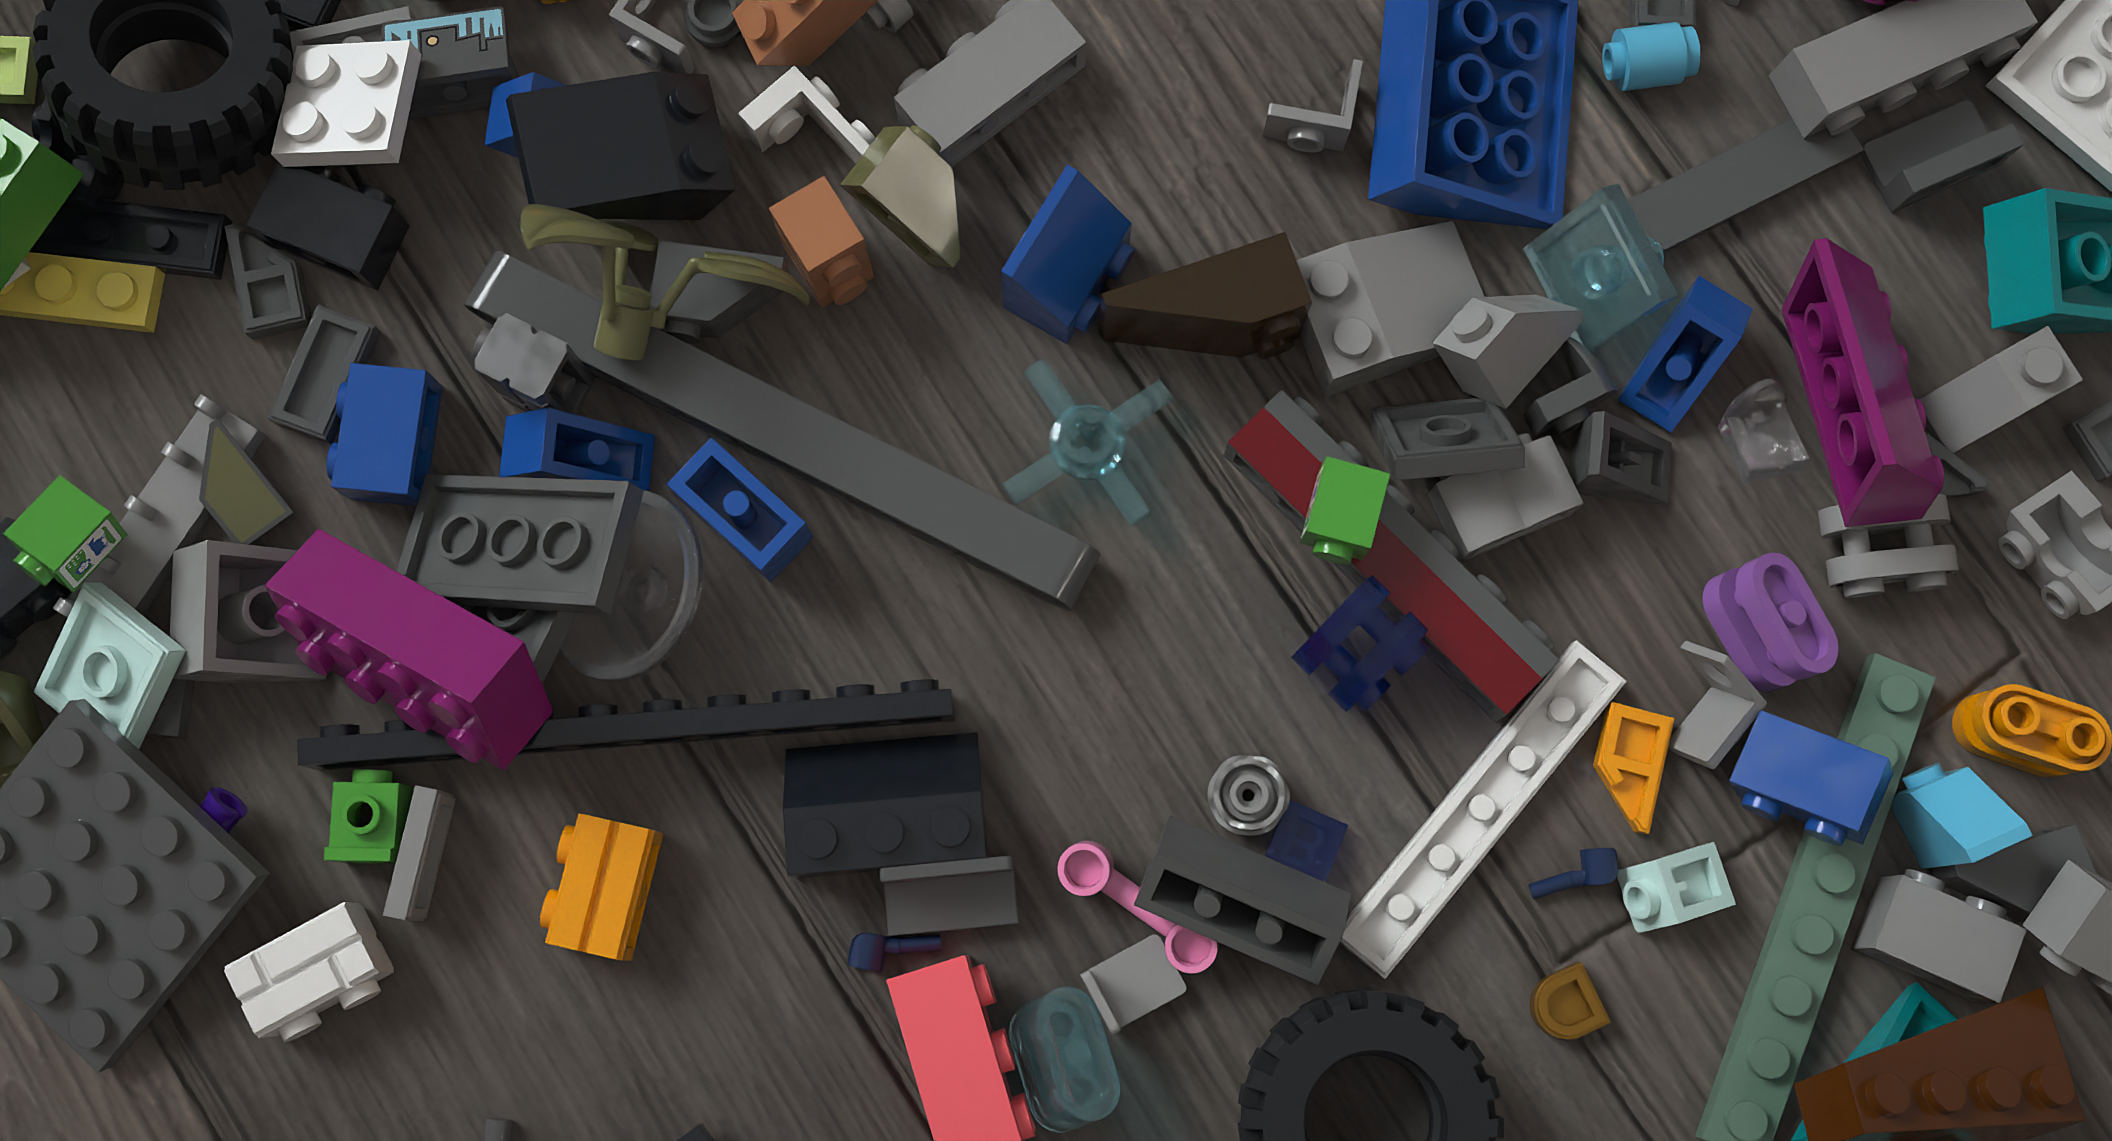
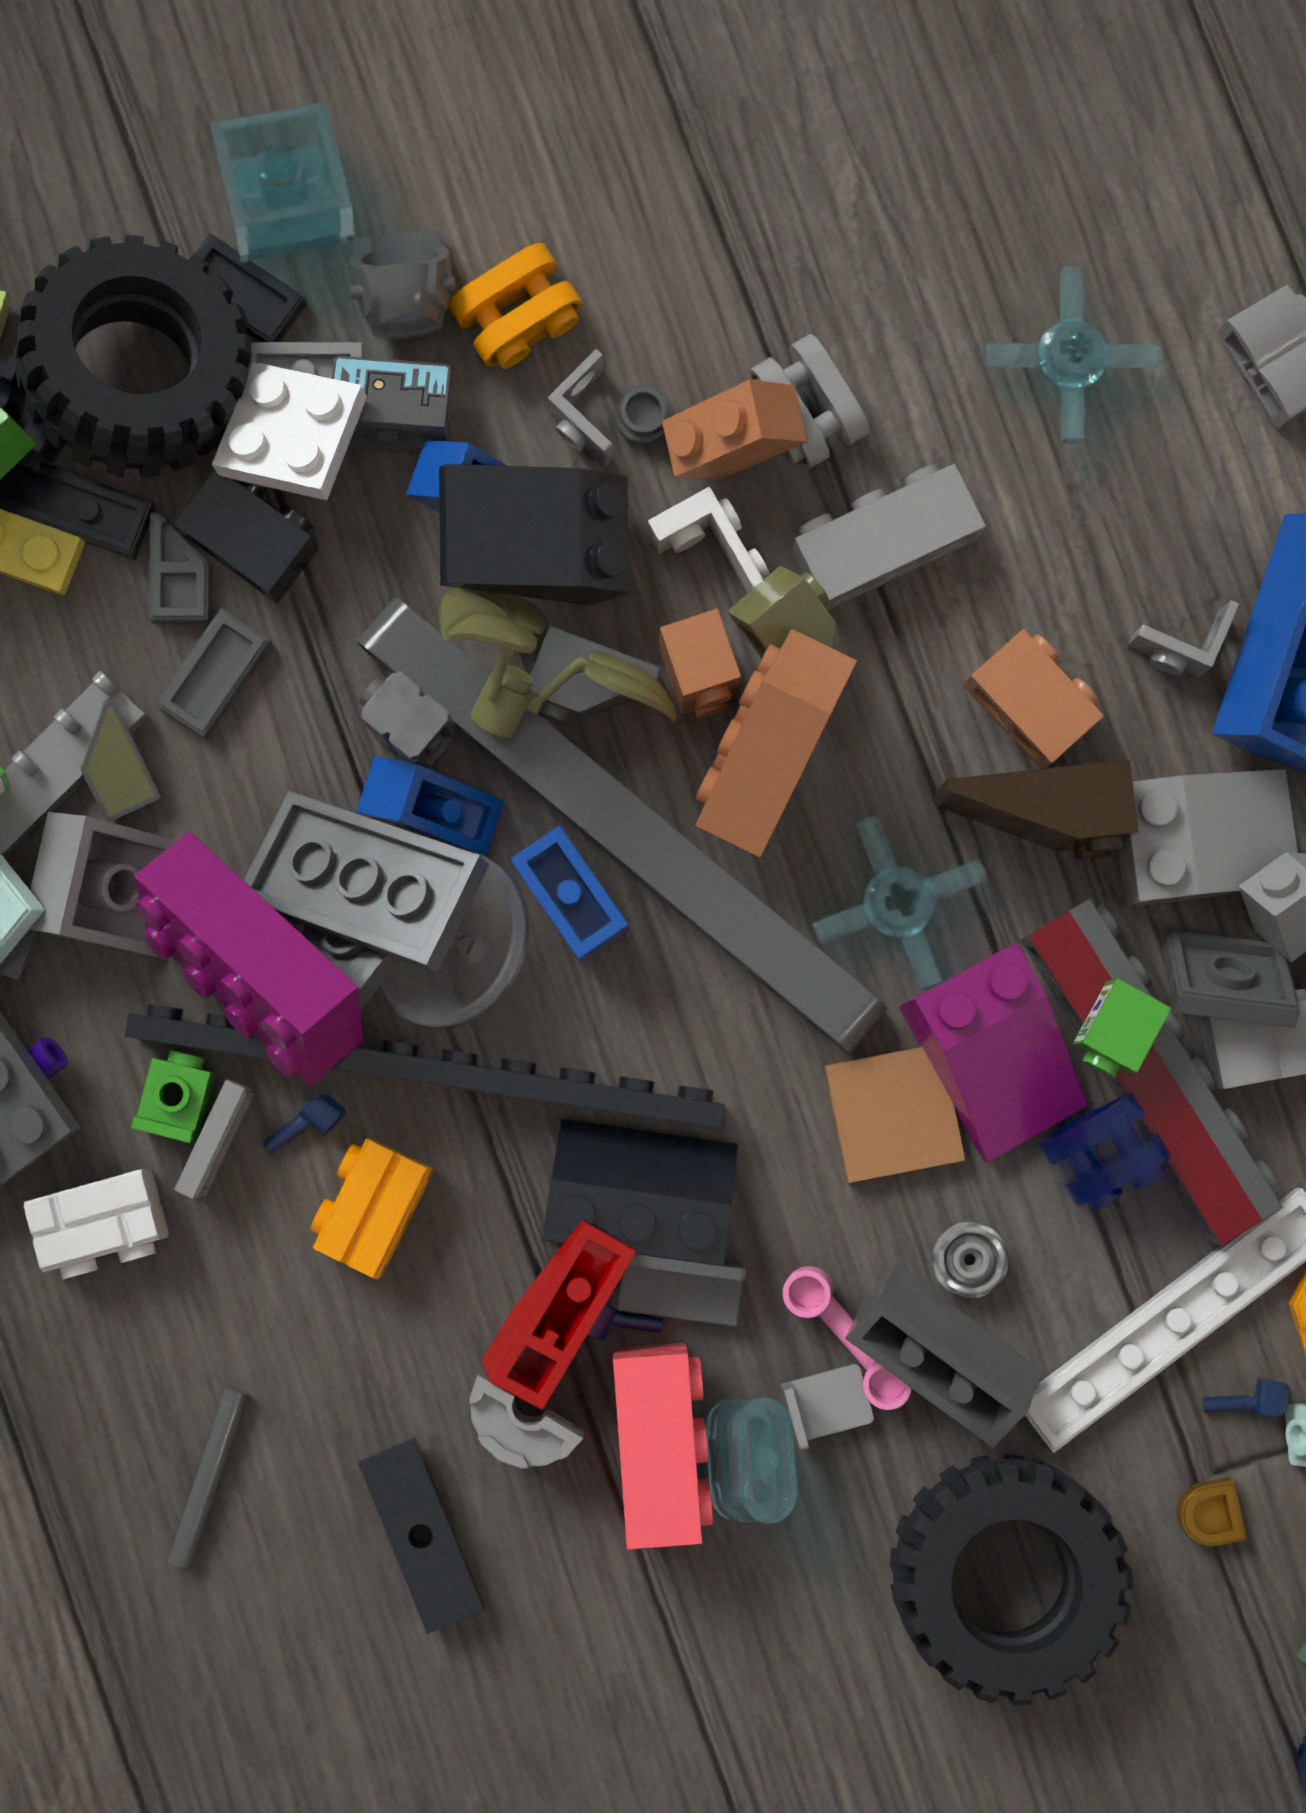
camera: 10 degrees right, 5 degrees up
(384, 434) = (259, 745): blue brick -> none
(526, 801) = (320, 1112): none -> dark blue hand
(798, 1091) = (517, 1436): none -> light grey cylinder
(821, 950) = (556, 1314): none -> red slope
(912, 299) = (771, 740): none -> nougat brick
(1067, 258) = (920, 728): blue slope -> none
(1133, 662) = (892, 1115): none -> medium nougat tile
(1179, 203) = (1034, 698): none -> nougat brick
(1224, 570) = (997, 1051): none -> magenta slope
(1306, 840) = (1012, 1313): clear blue tile -> none

